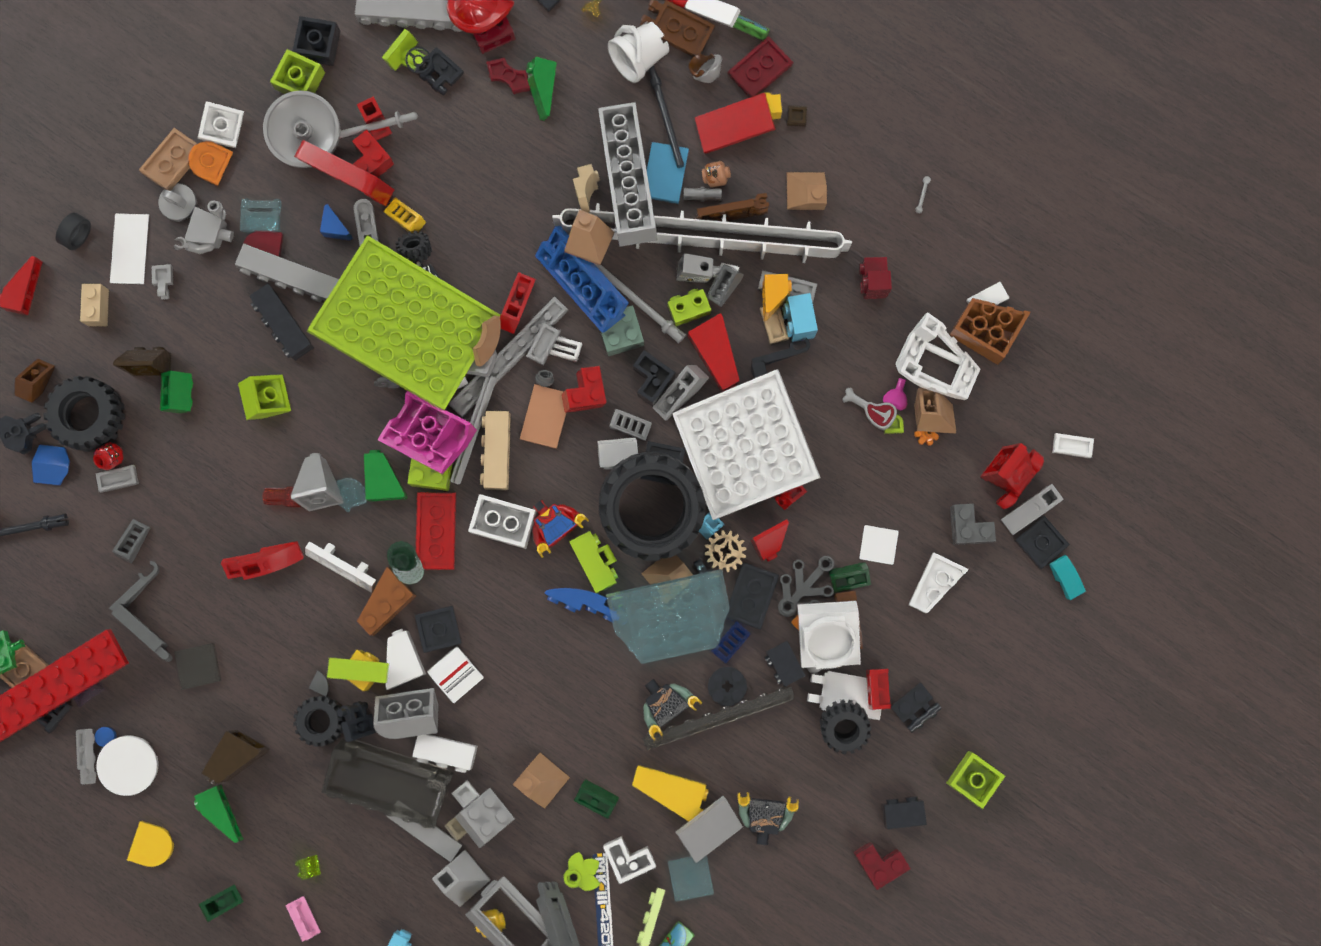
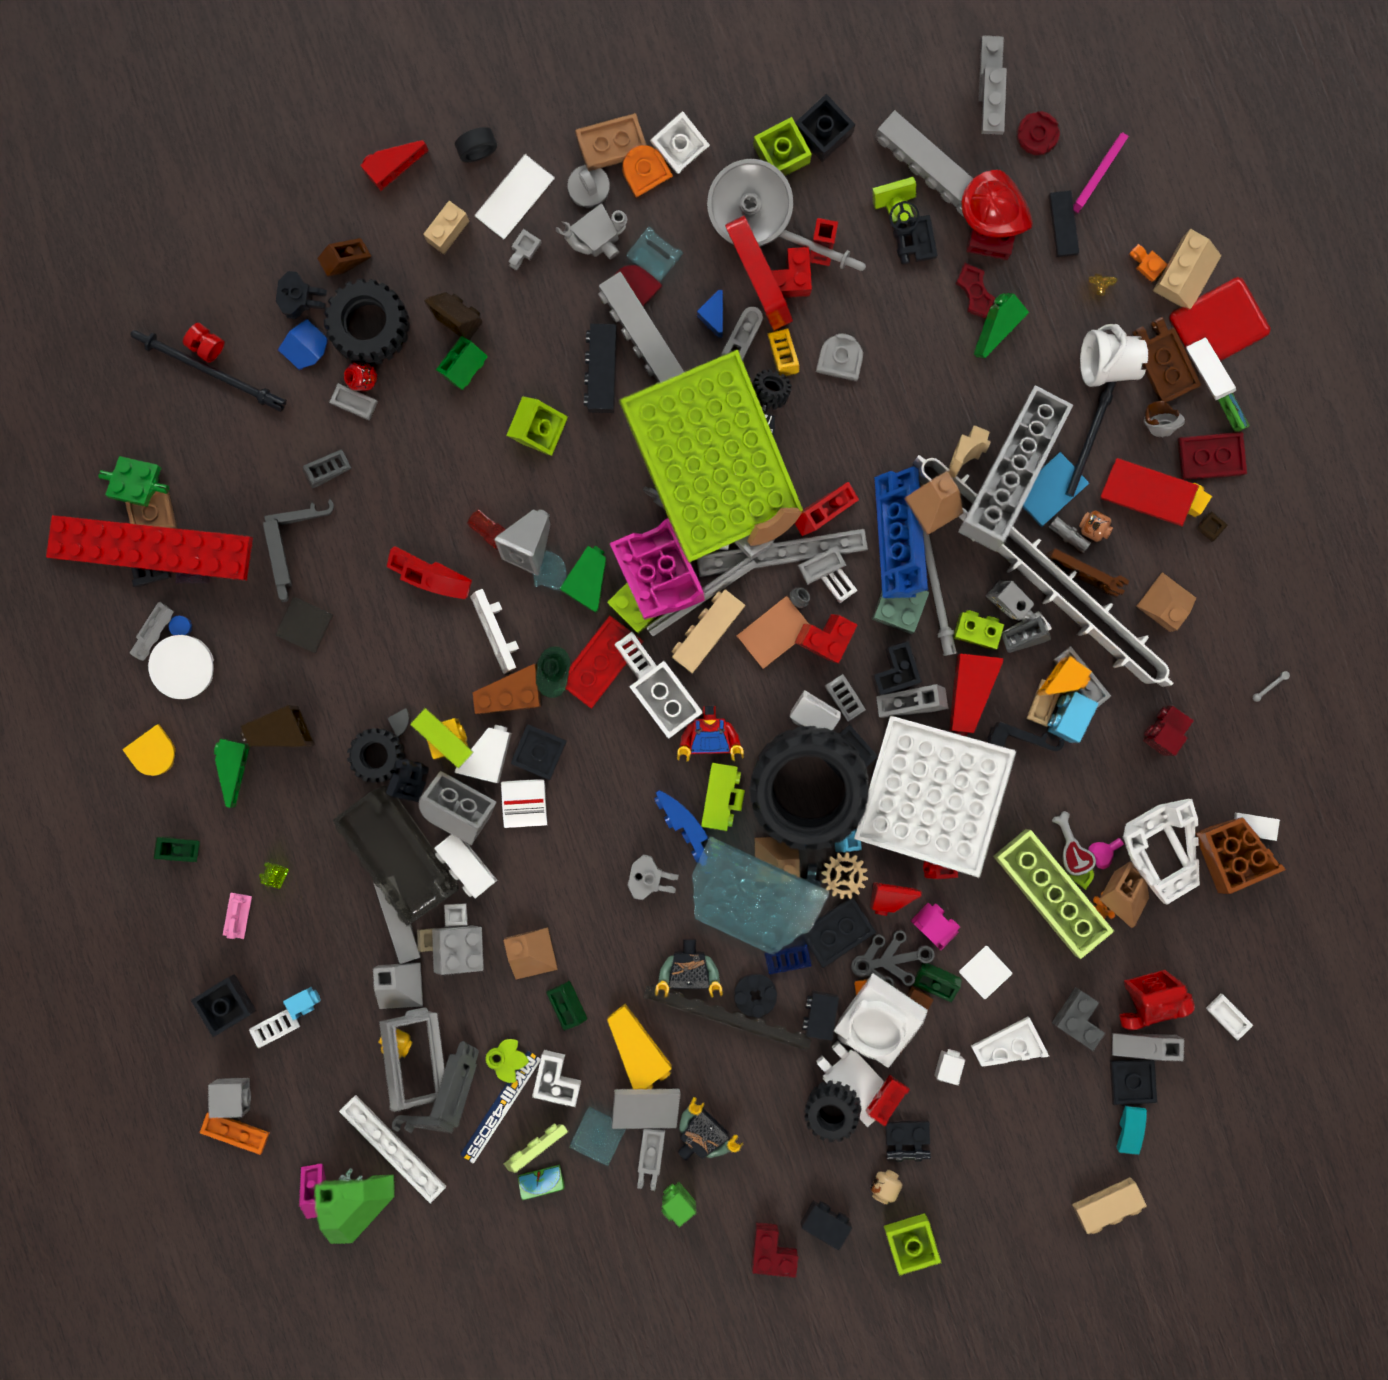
camera: 35 degrees right, 5 degrees up
(448, 190) = (841, 357): none -> light grey tile
(455, 513) = (651, 665): none -> white slope
(587, 658) = (650, 878): none -> light grey hinge
(739, 862) = (650, 1155): none -> light grey hinge
(784, 881) = (678, 1204): none -> bright green brick
(818, 538) = (935, 925): none -> dark pink cylinder
(882, 451) = (1053, 893): none -> yellowish green brick
(904, 630) = (949, 1066): none -> white brick
(925, 752) = (886, 1186): none -> tan head
(1093, 644) = (1109, 1206): none -> tan brick

